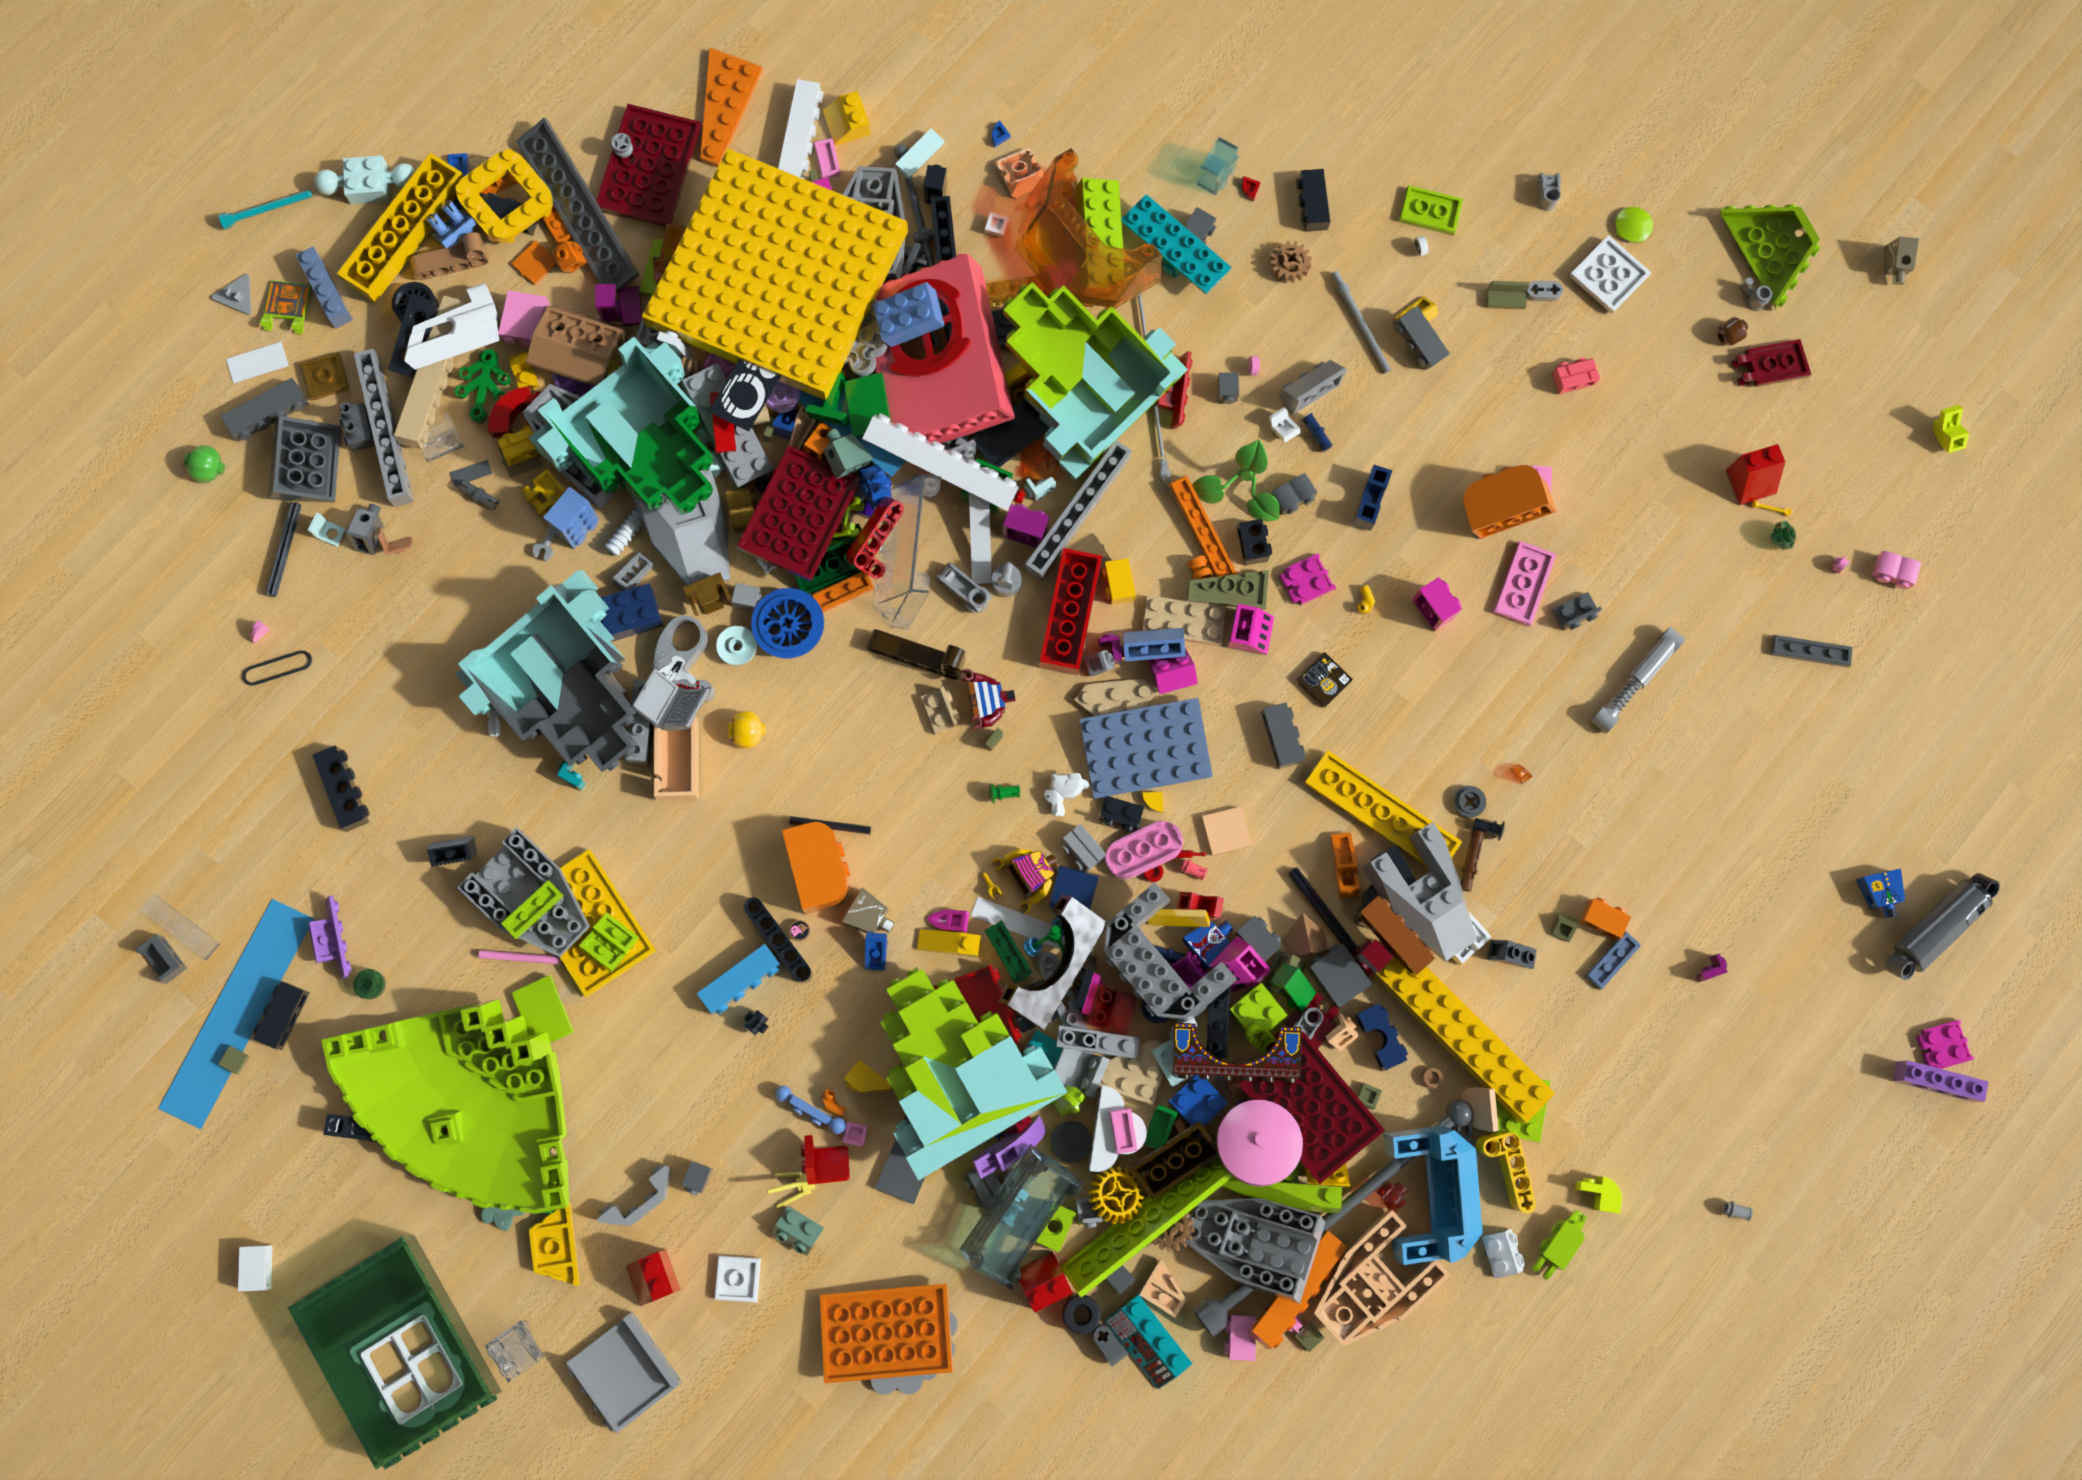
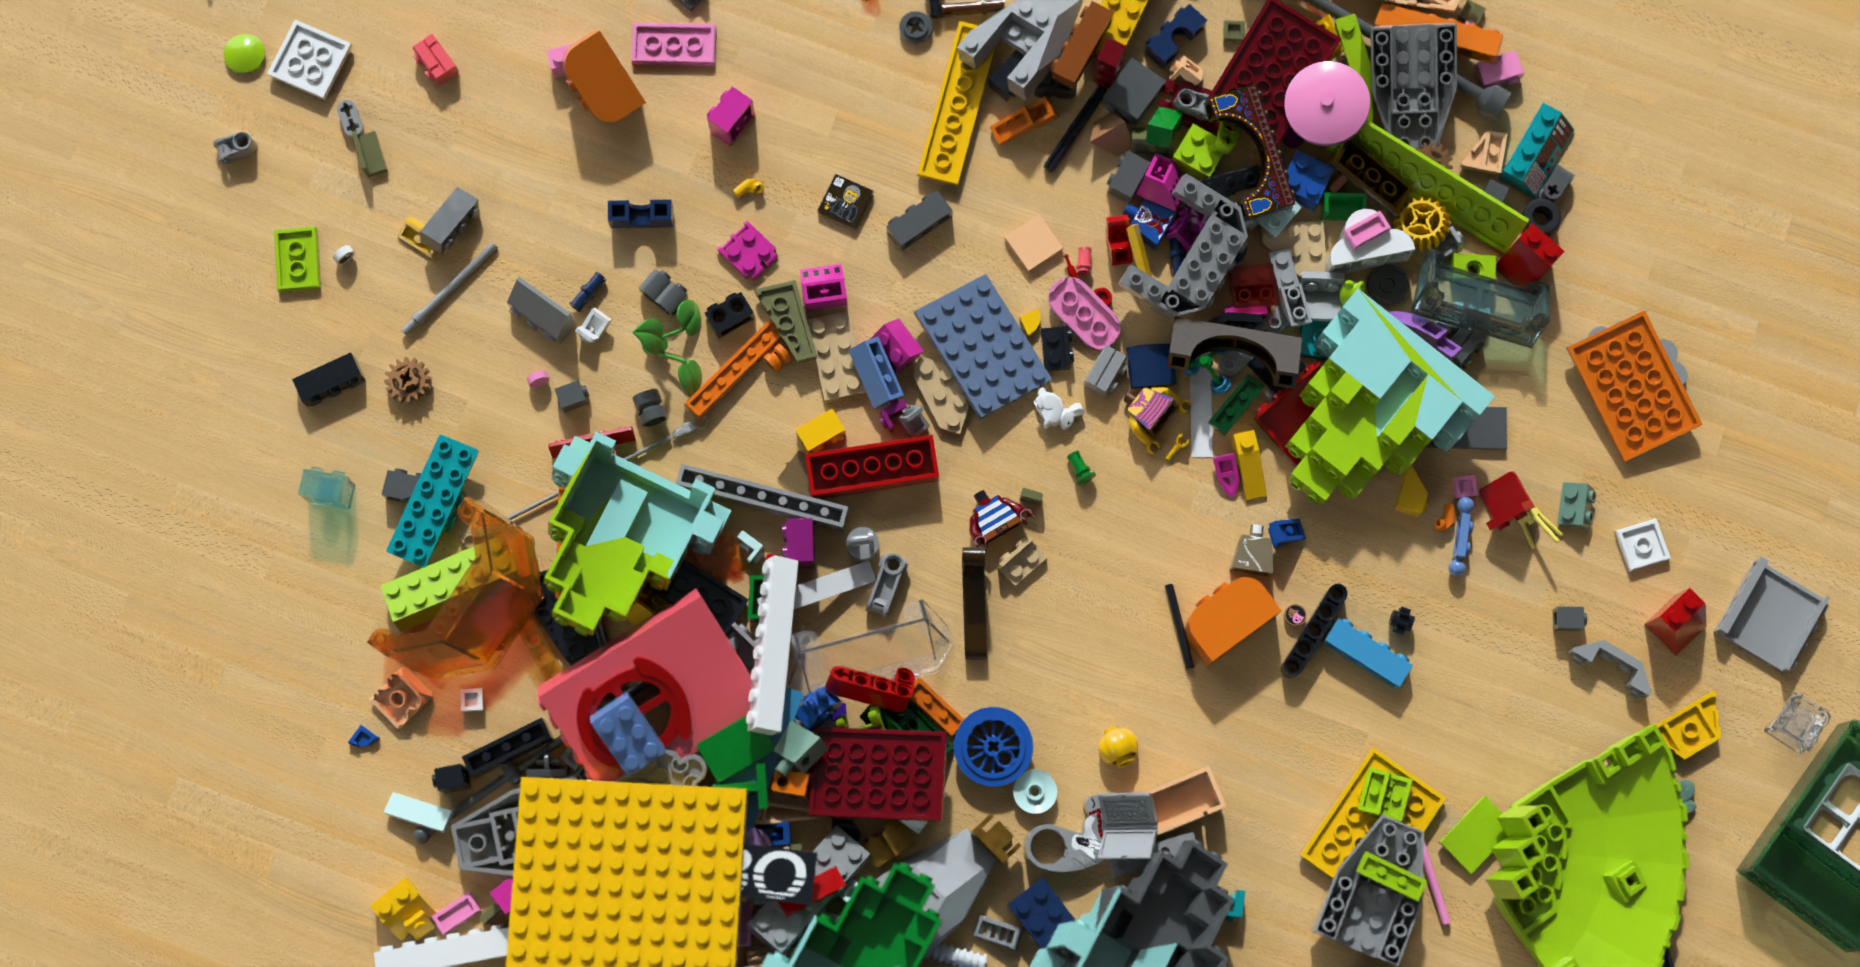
camera: 105 degrees left, 0 degrees up
(746, 596) = (980, 801): light grey brick -> none
(829, 126) = (419, 924): none -> yellow plate
(1193, 446) = (650, 409): none -> dark grey wheel
(1250, 187) = (335, 451): red tile -> none

